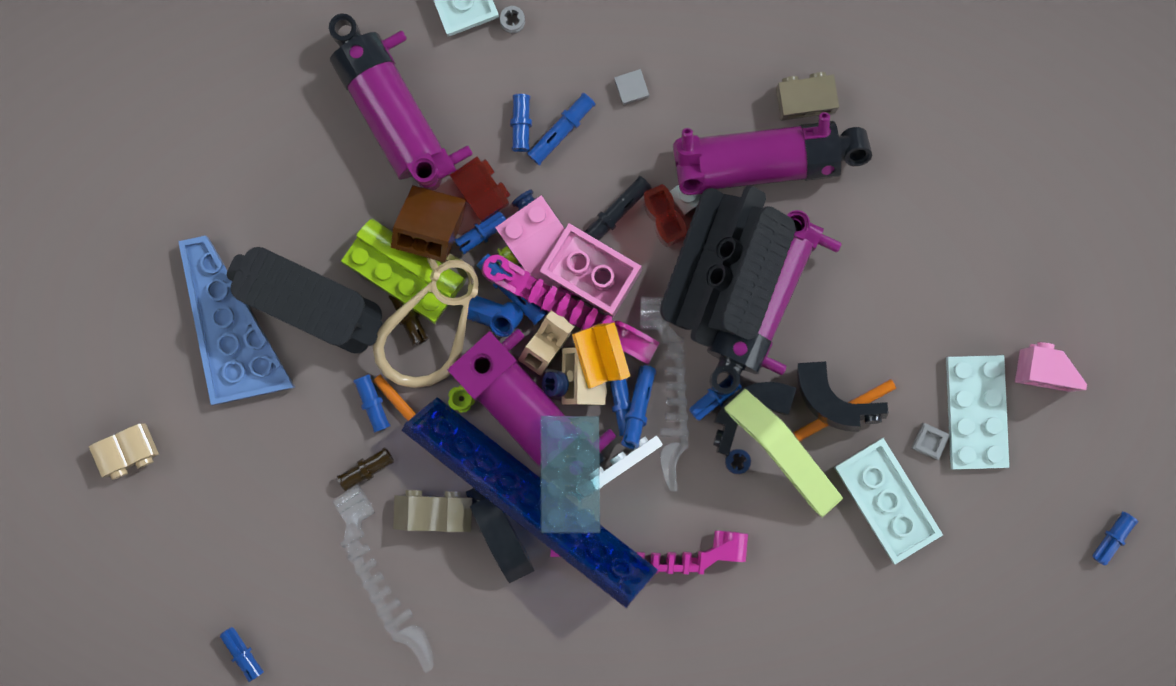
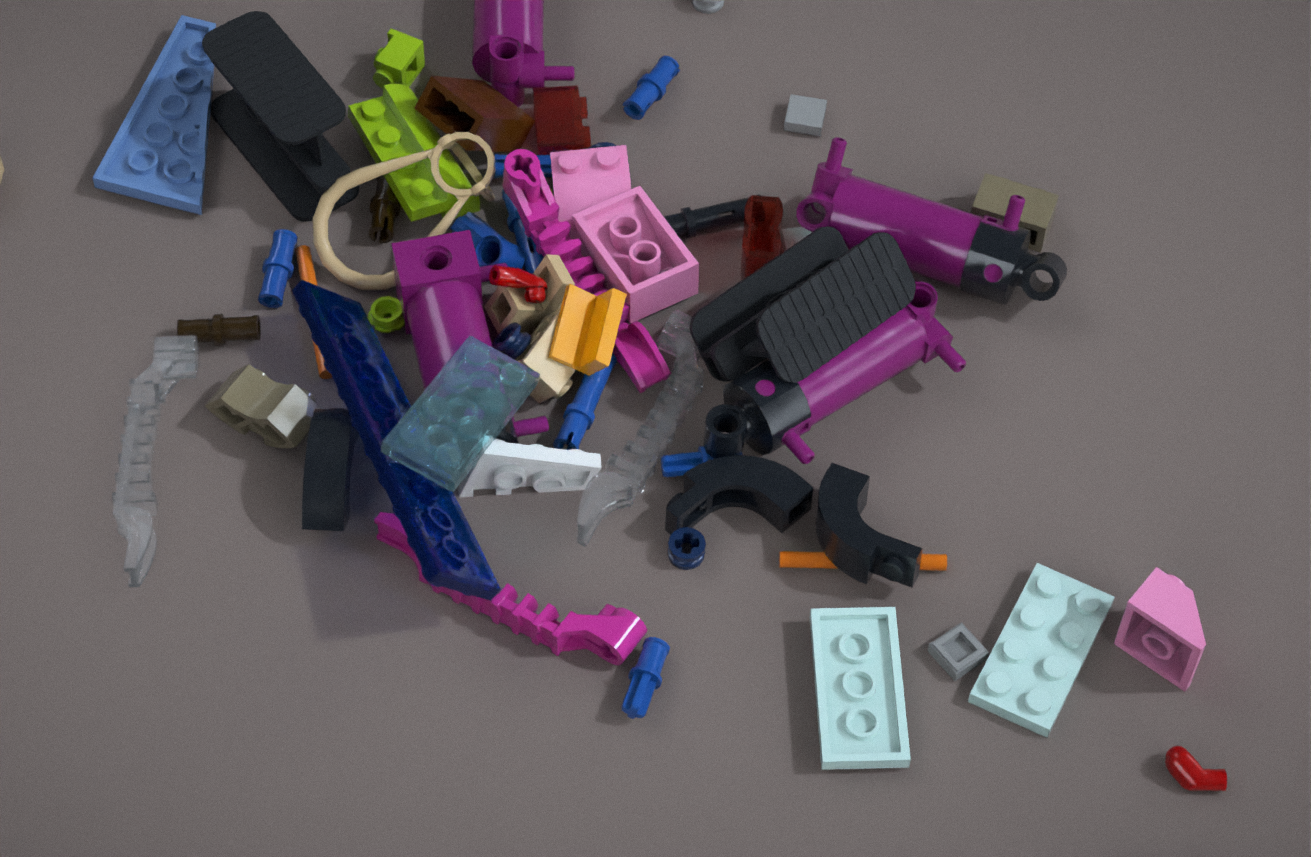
camera: 20 degrees right, 30 degrees down
(345, 199) = (399, 60): none -> lime brick
(538, 340) = (518, 278): none -> red arm
(569, 120) = (710, 110): blue pin -> none
(636, 417) = (587, 421): blue pin -> none
(764, 565) = (645, 677): none -> blue axle
(784, 451) = (746, 482): yellowish green beam -> none
(1101, 450) = (1190, 773): none -> red arm

